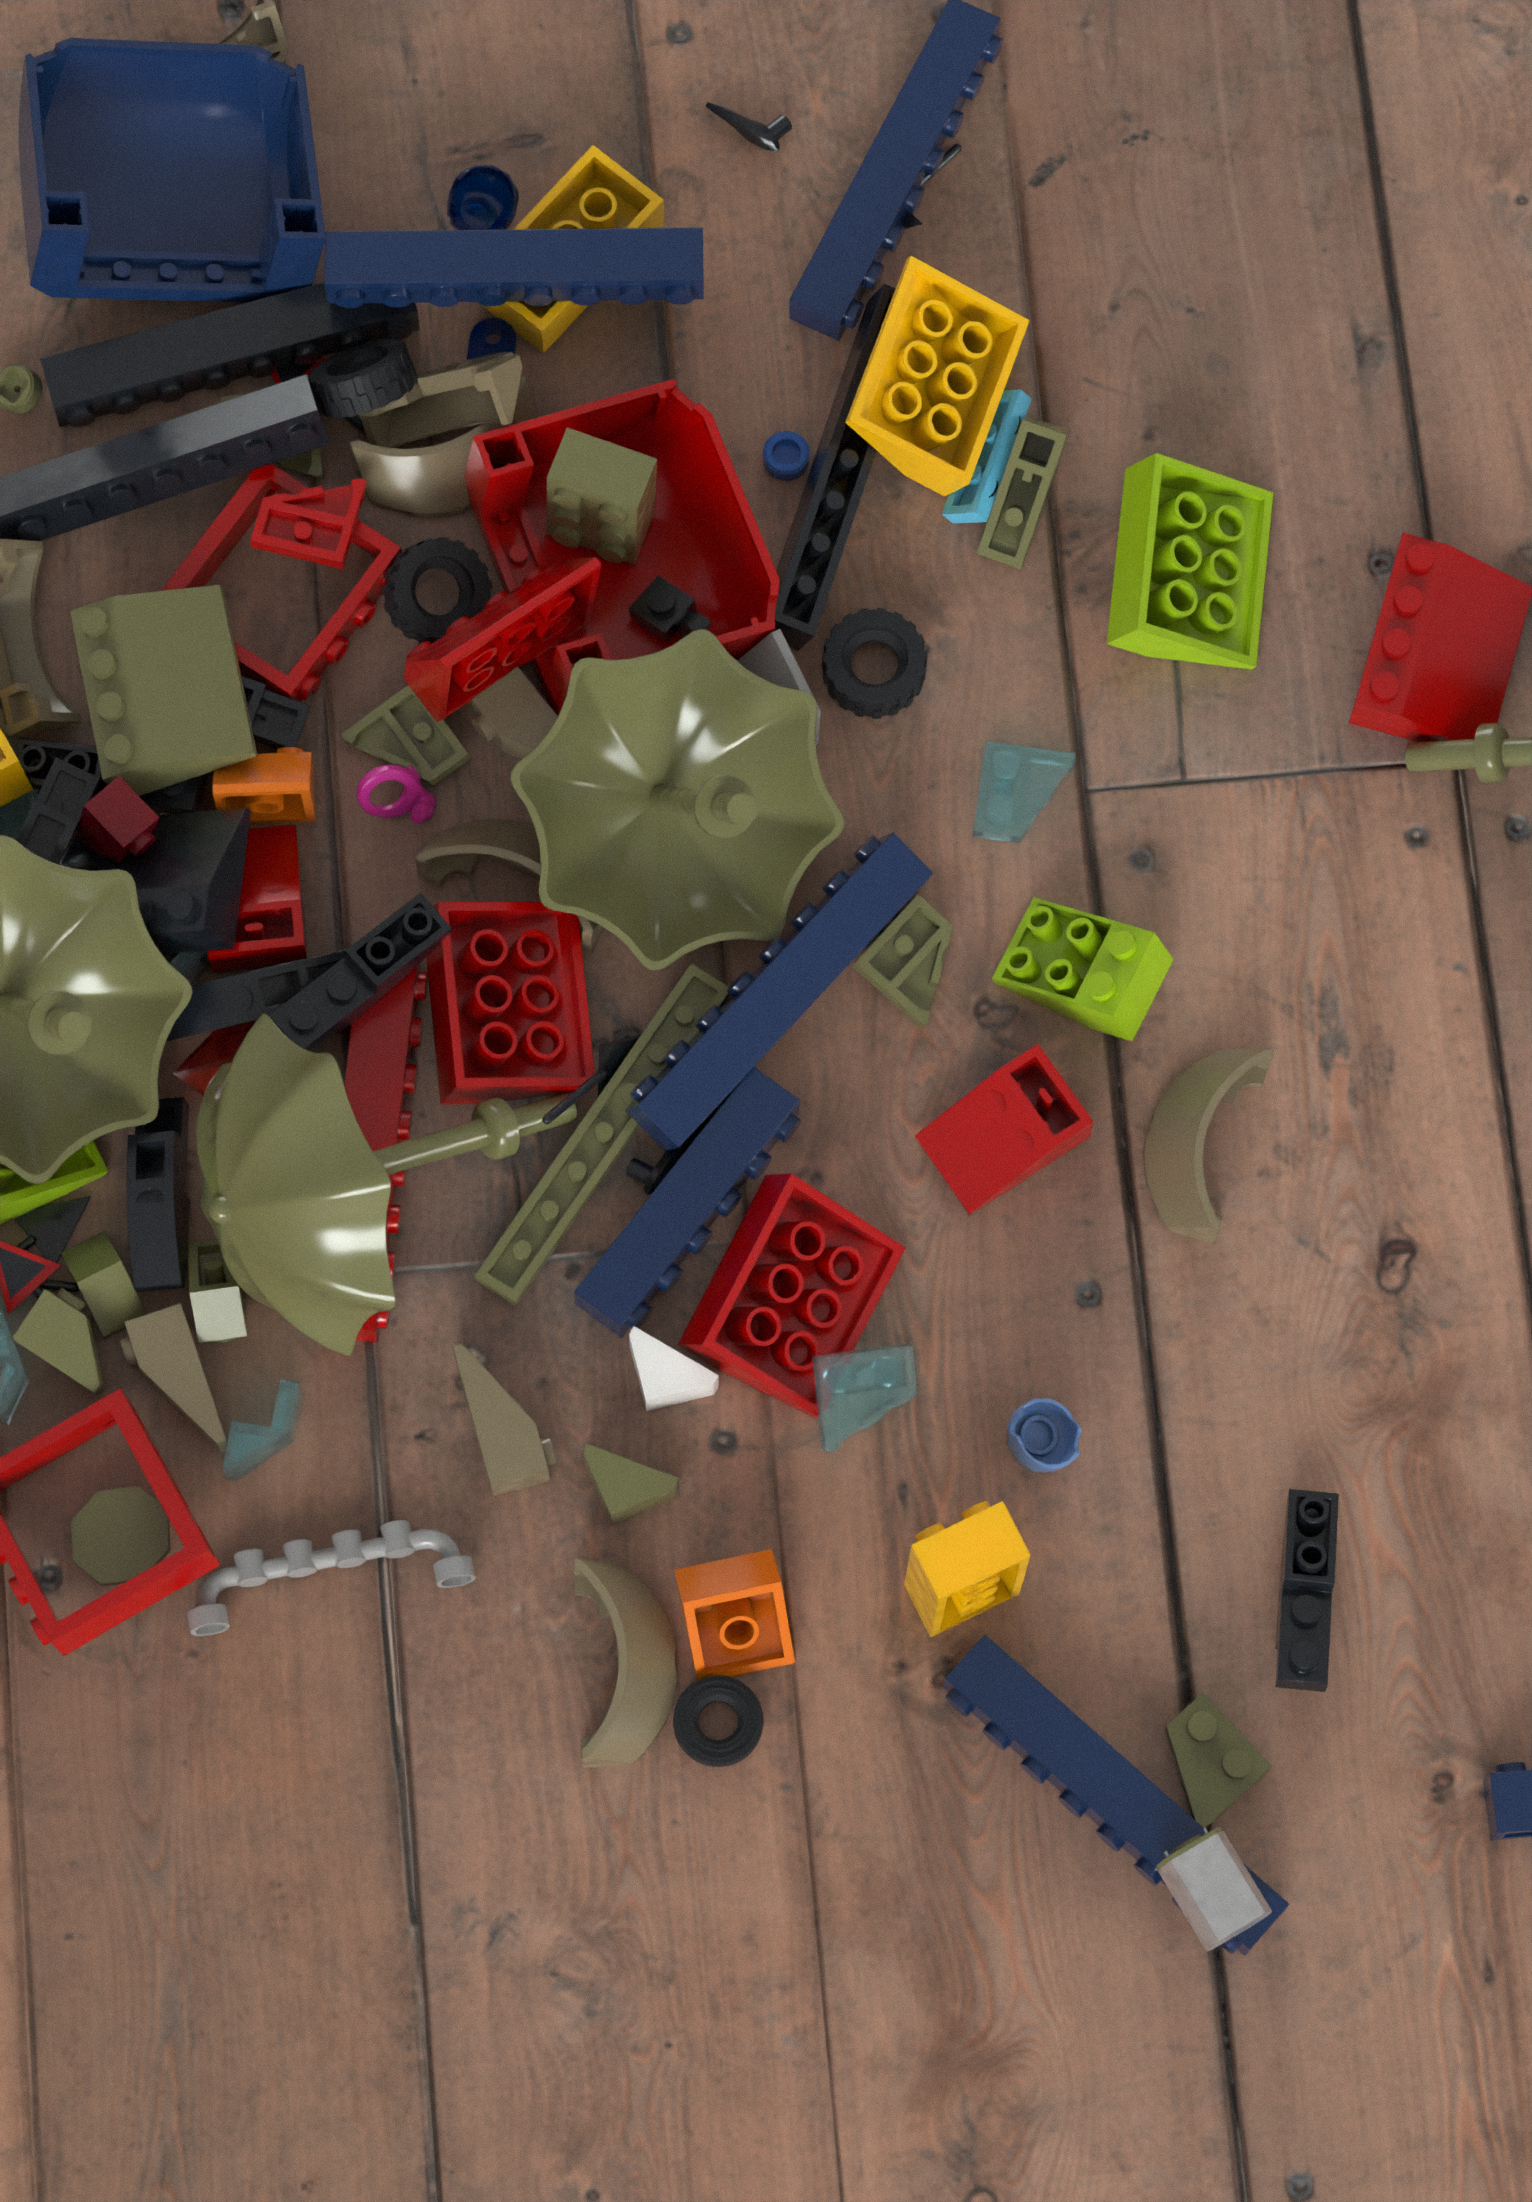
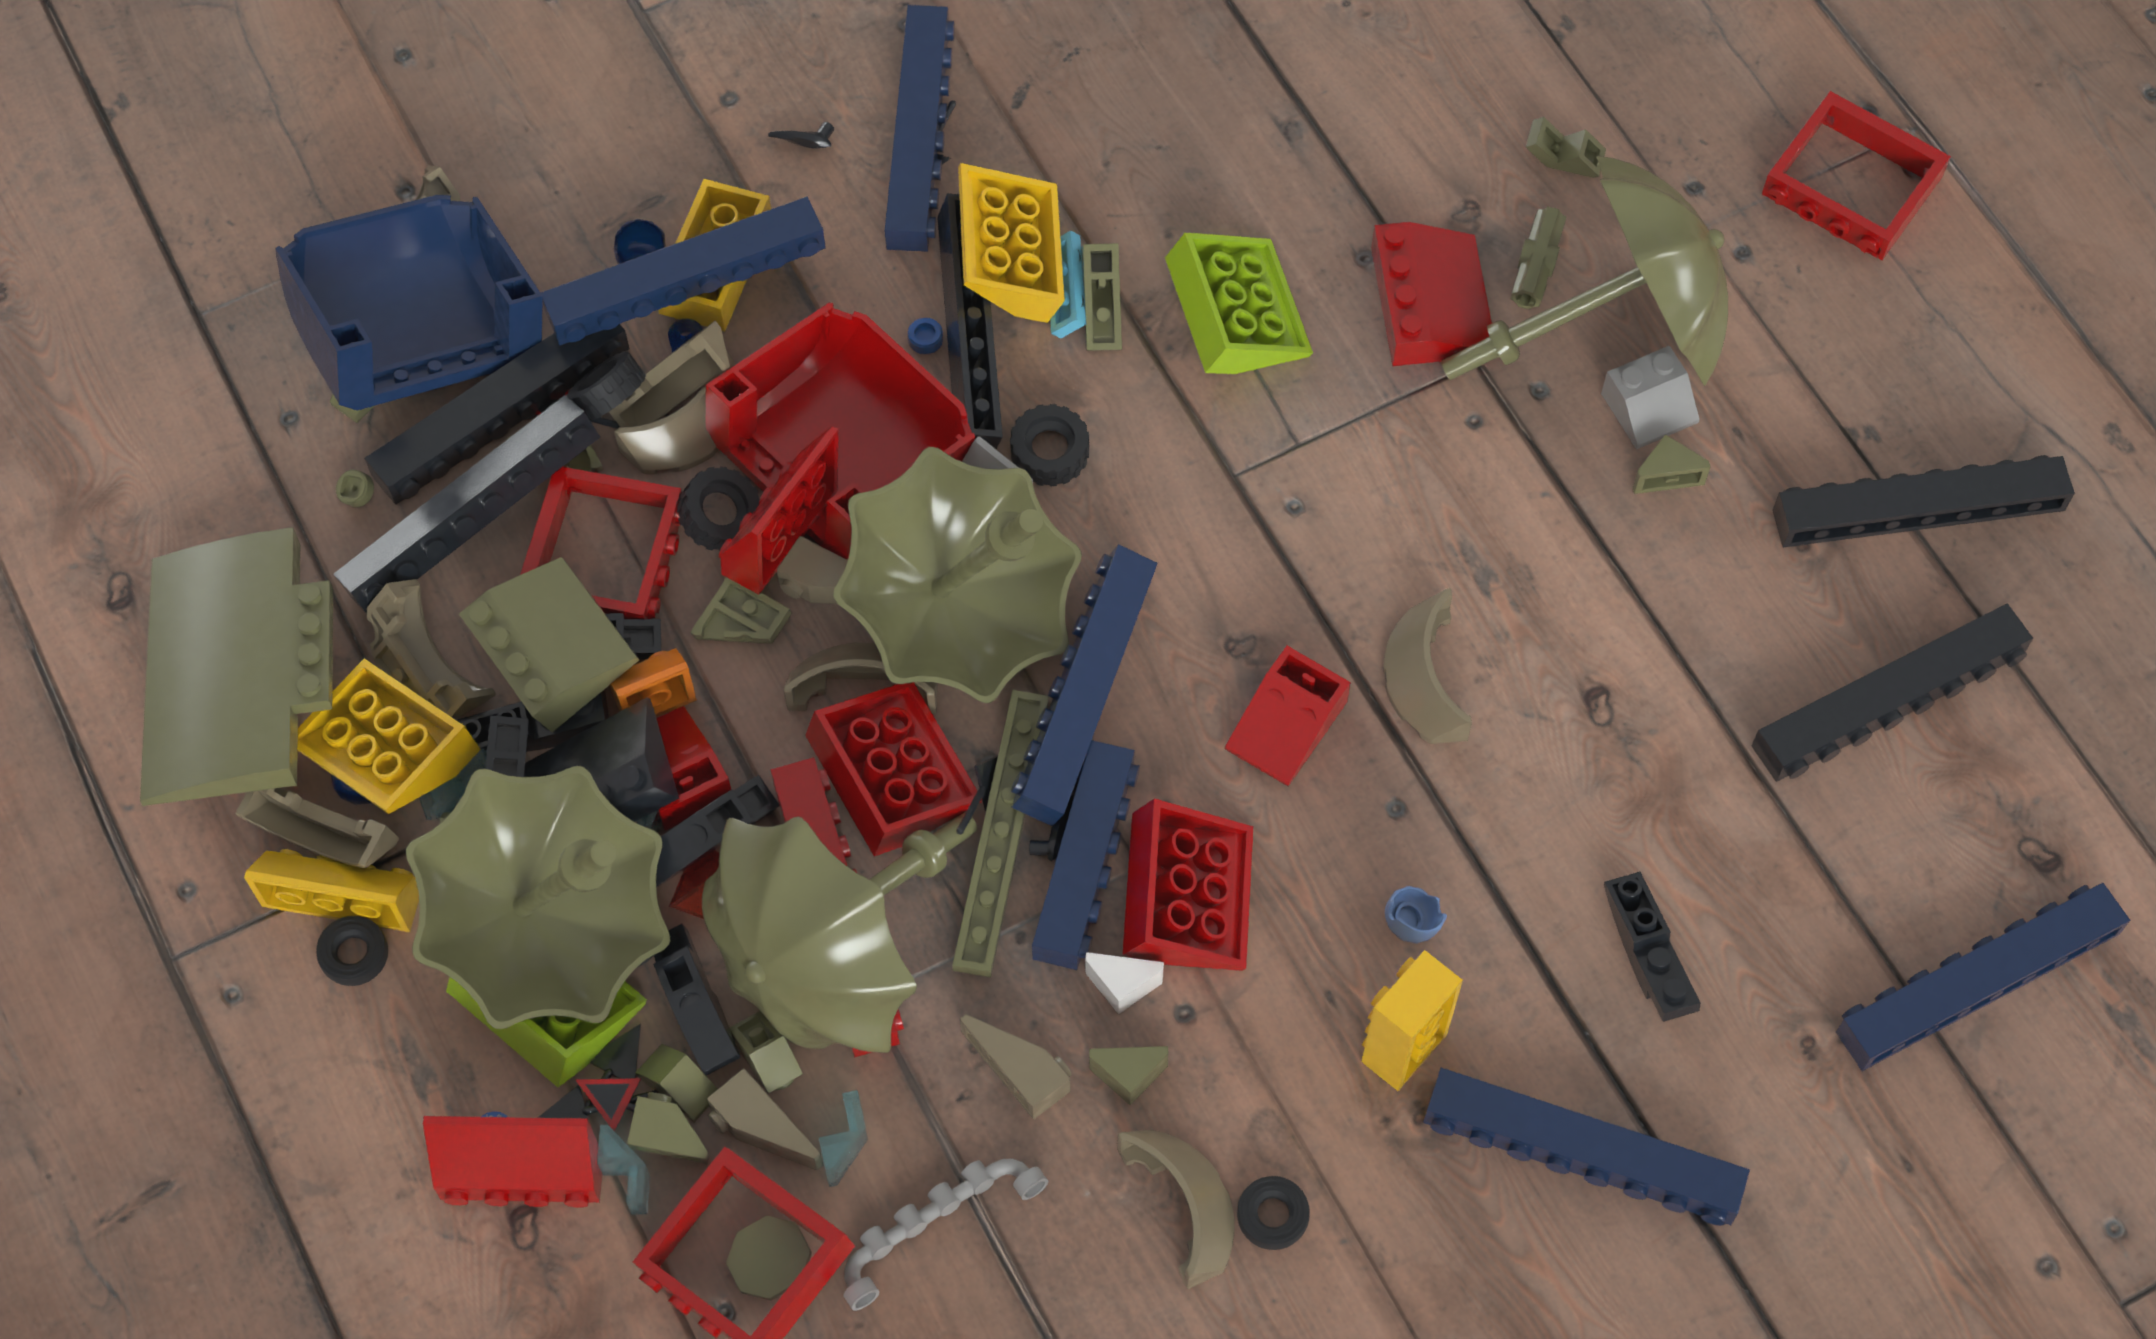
camera: 20 degrees left, 10 degrees down
(117, 823) = (554, 744): dark red slope -> none
(311, 524) = (609, 494): red wing -> none
(363, 975) = (787, 770): black slope -> none
(412, 798) = (759, 654): dark pink piece -> none
(600, 497) = (811, 395): olive brick -> none
(667, 611) = (887, 462): black plate -> none
(735, 1615) = (1252, 1130): orange slope -> none
(859, 1388) = (1267, 935): clear light blue wing -> none
(909, 959) = (1164, 630): olive wing -> none
(1016, 788) = (1185, 491): clear light blue wing -> none
(1085, 967) = (1291, 588): lime slope -> none
(1212, 1759) = (1640, 1092): olive wing -> none
(1213, 1888) = (1694, 1176): flat silver piece -> none

